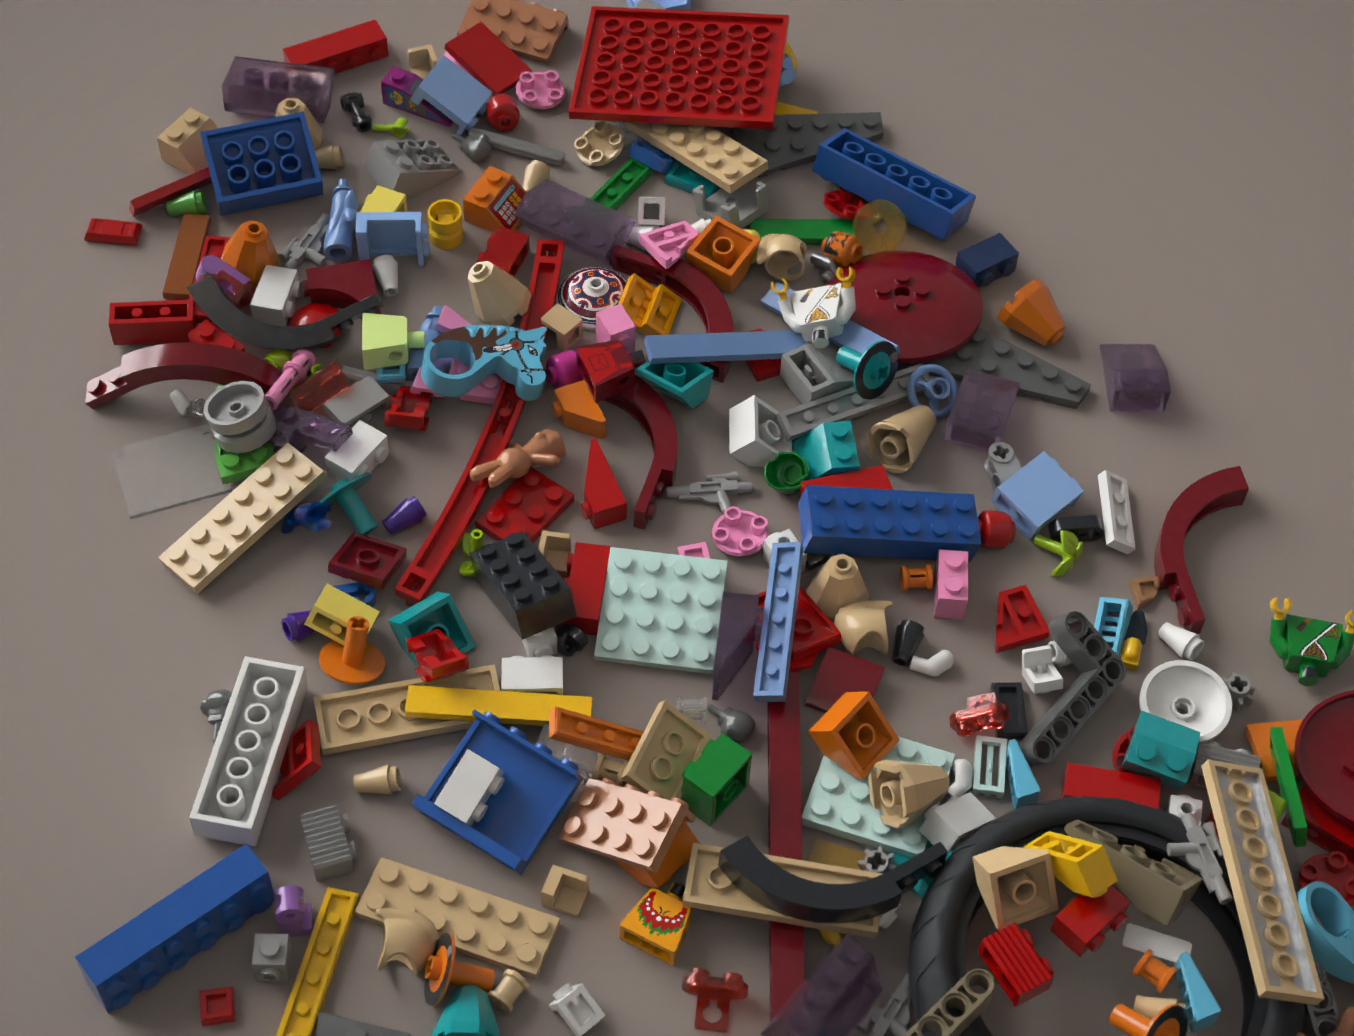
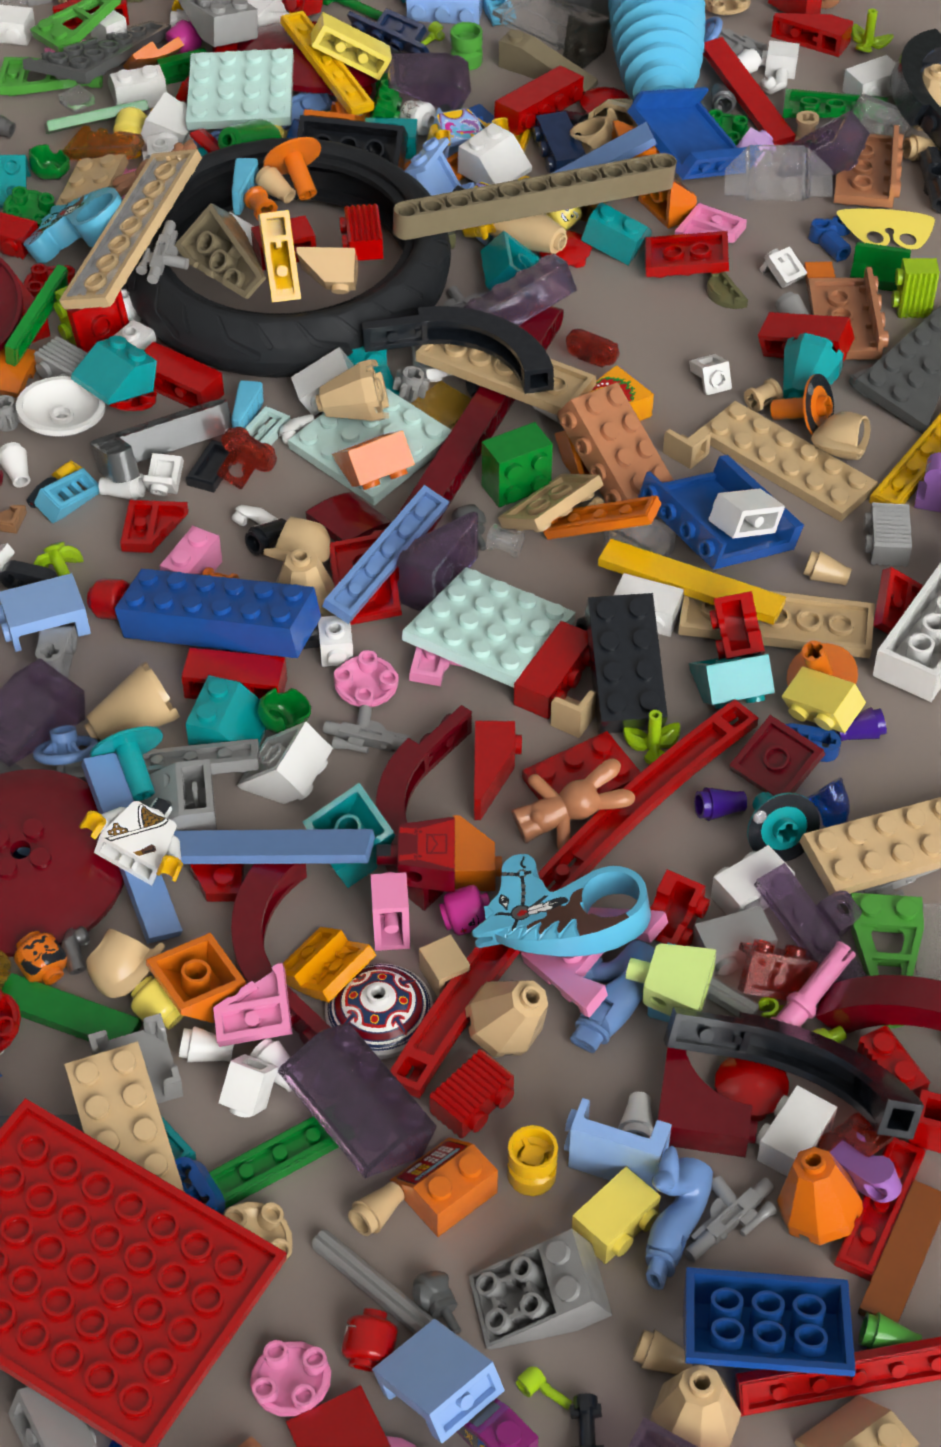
camera: 155 degrees left, 5 degrees down
(240, 417) = (888, 926): light grey wheel -> none

